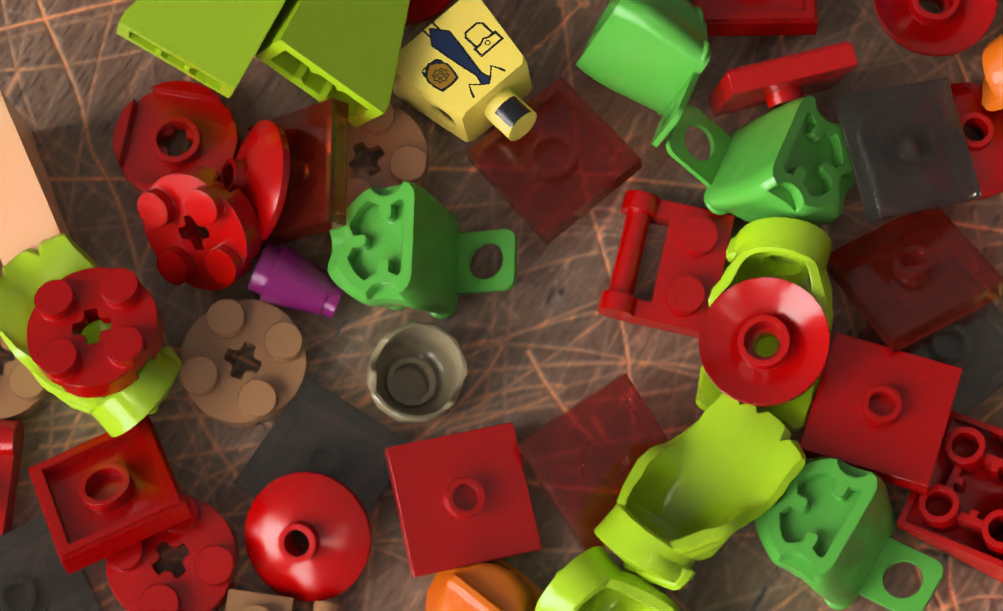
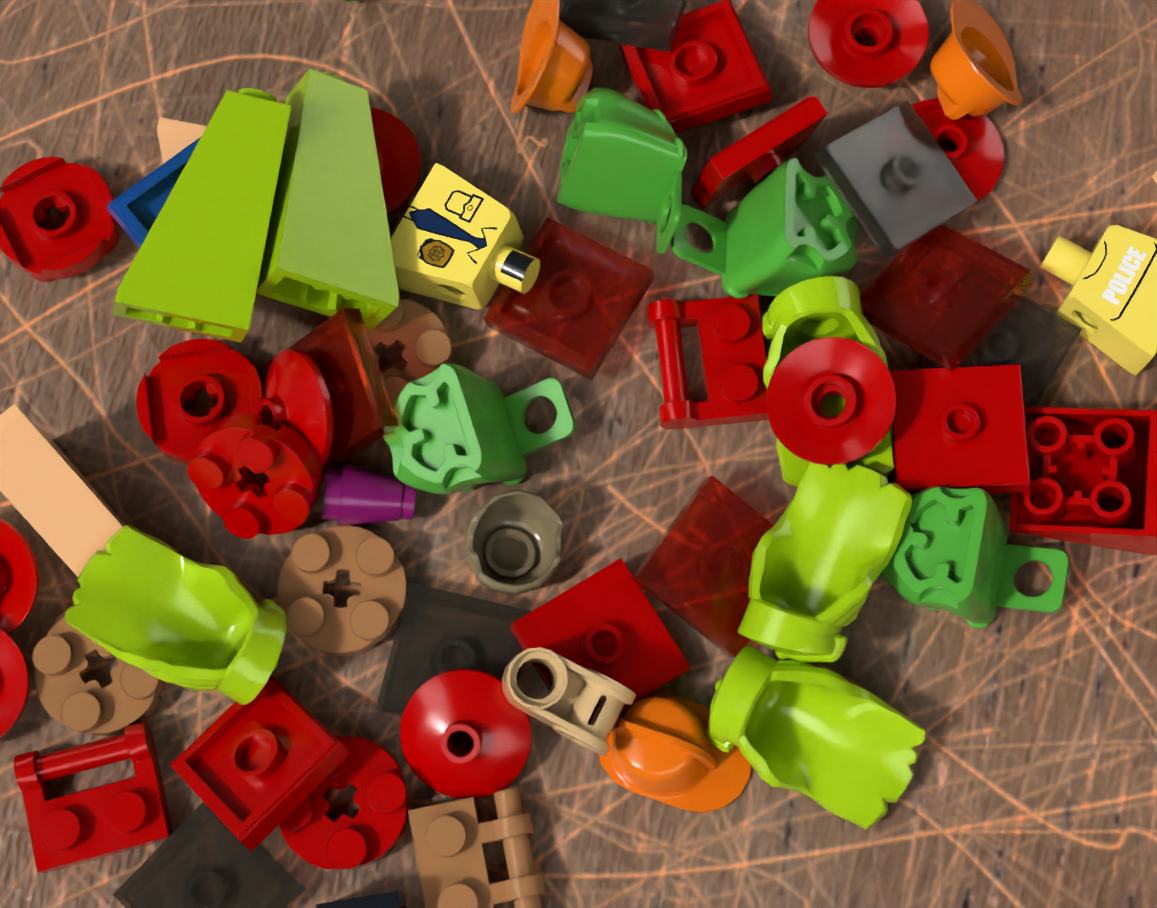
camera: 20 degrees left, 0 degrees up
(74, 302) = (163, 587): red plate -> none
(413, 538) = (570, 698): none -> tan piece

